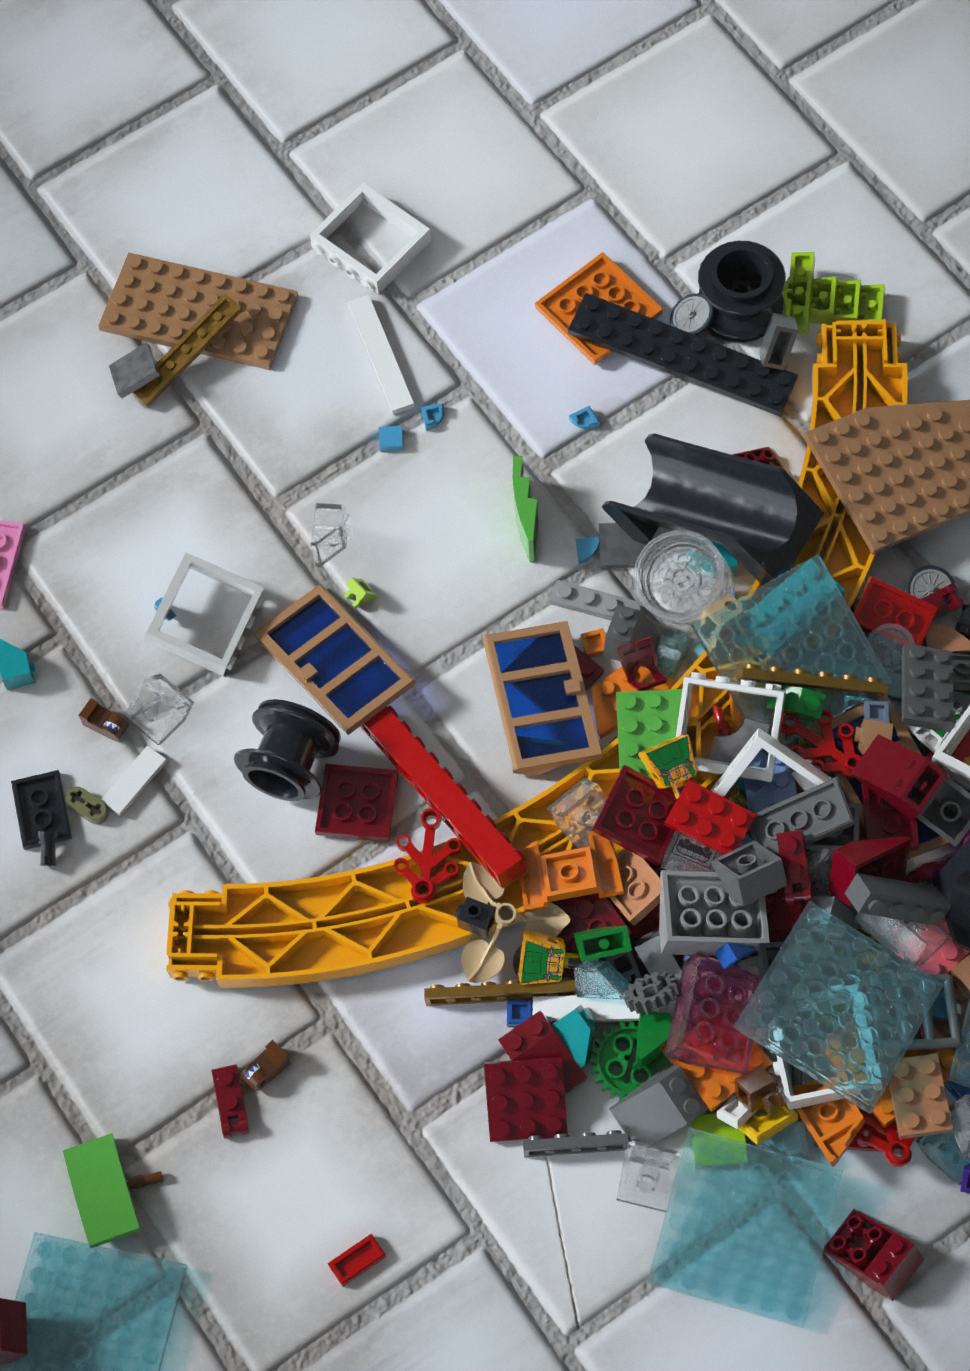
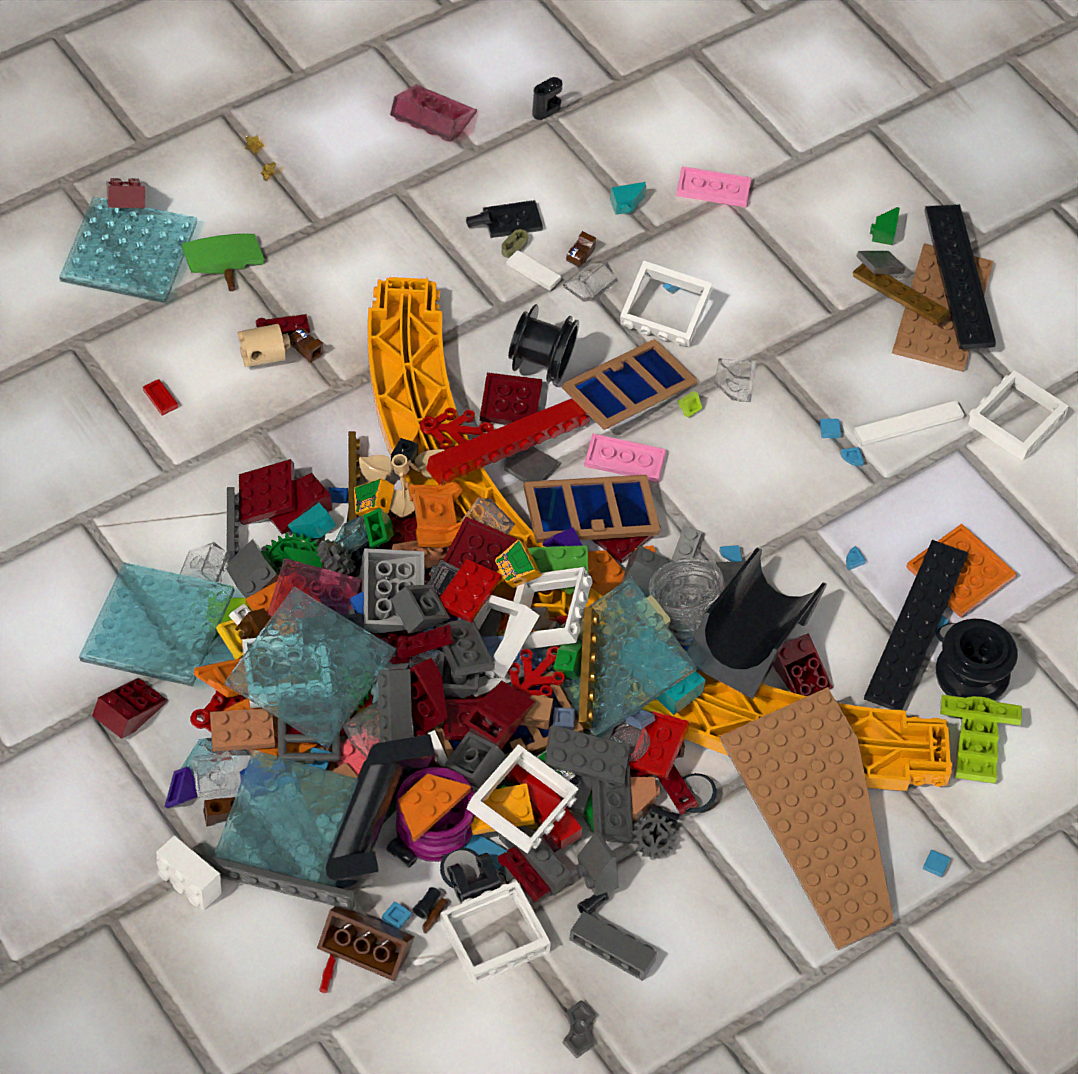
camera: 80 degrees right, 10 degrees down
(73, 364) = (885, 227): none -> green slope
(160, 284) = (959, 277): none -> black plate
(277, 1118) = (263, 345): none -> tan cylinder
(443, 668) = (624, 457): none -> bright pink tile
(467, 771) = (530, 465): none -> flat silver tile
(525, 508) = (761, 504): bright green slope -> none
(602, 721) = (565, 538): none -> dark purple slope
(637, 655) = (622, 565): dark red piece -> none
(778, 341) = (926, 686): dark grey brick -> none
(870, 629) = (640, 719): none -> sand blue tile

